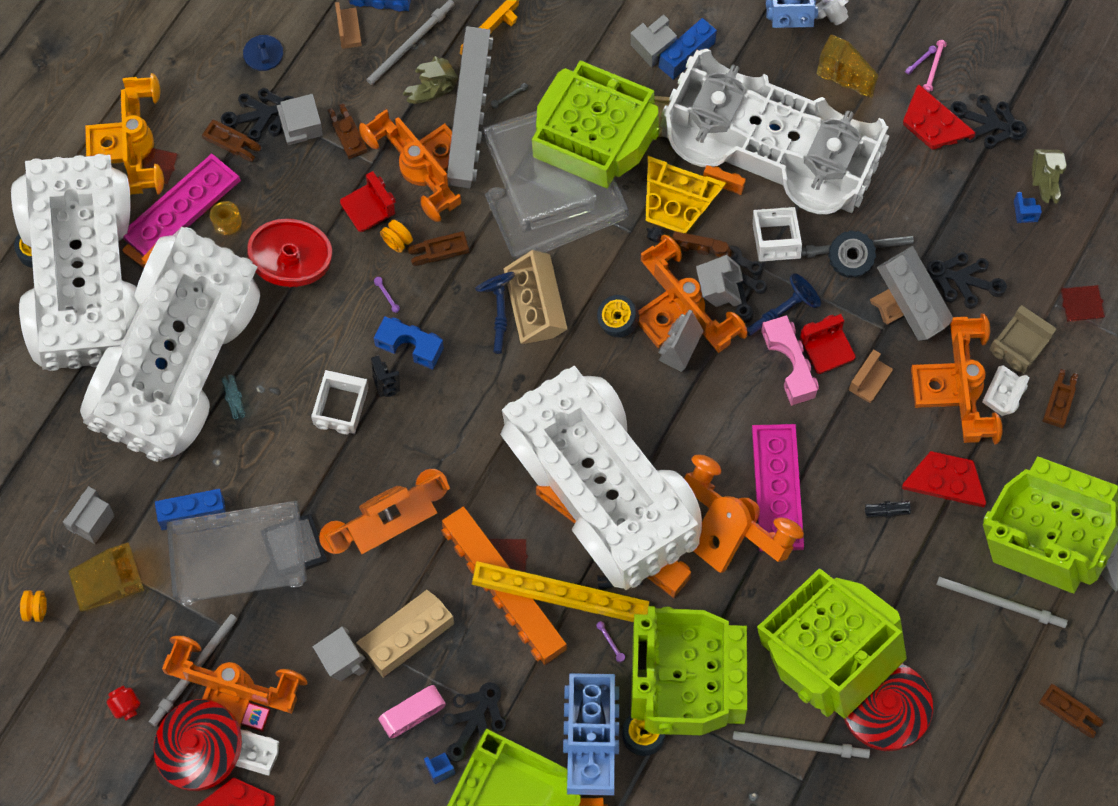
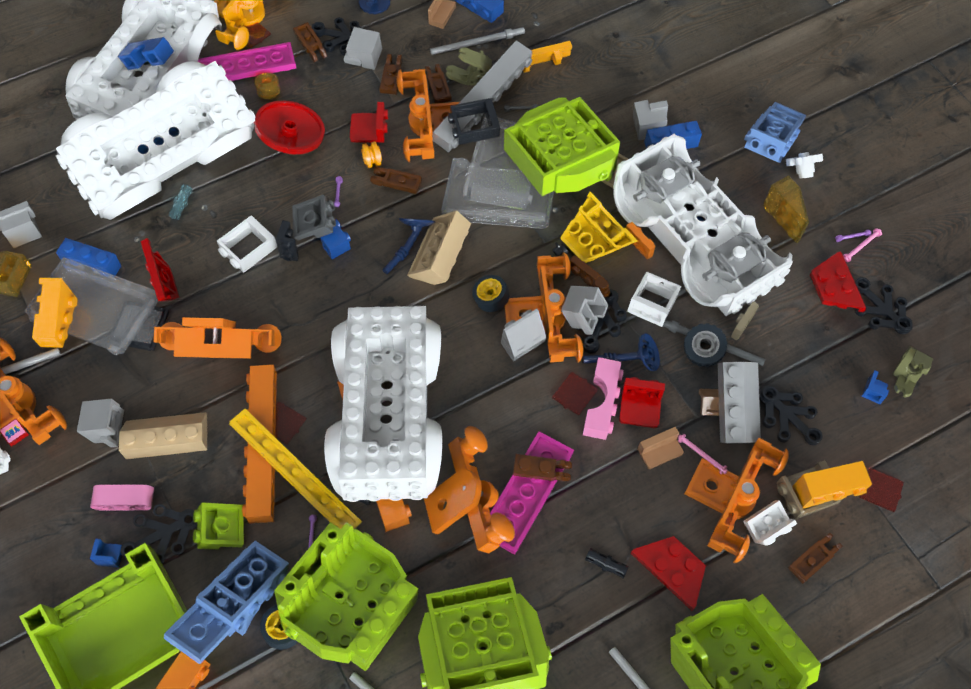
camera: 30 degrees right, 5 degrees down
(72, 261) = (154, 51): none -> blue arch
(207, 582) = (55, 313): none -> light orange wedge
(277, 480) = (160, 273): none -> red wing
(395, 338) = (313, 218): none -> dark grey plate
(411, 118) = (438, 85): none -> reddish brown hinge
(499, 129) = (472, 108): none -> black window
(523, 682) = (218, 526): none -> lime plate
(759, 370) = (575, 393): none -> clear red piece
(777, 458) = (541, 468): none -> reddish brown hinge
(871, 208) = (743, 320): none -> dark tan plate
(937, 365) = (722, 469): none -> bright pink axle
(1041, 324) = (832, 484): none -> light orange wedge

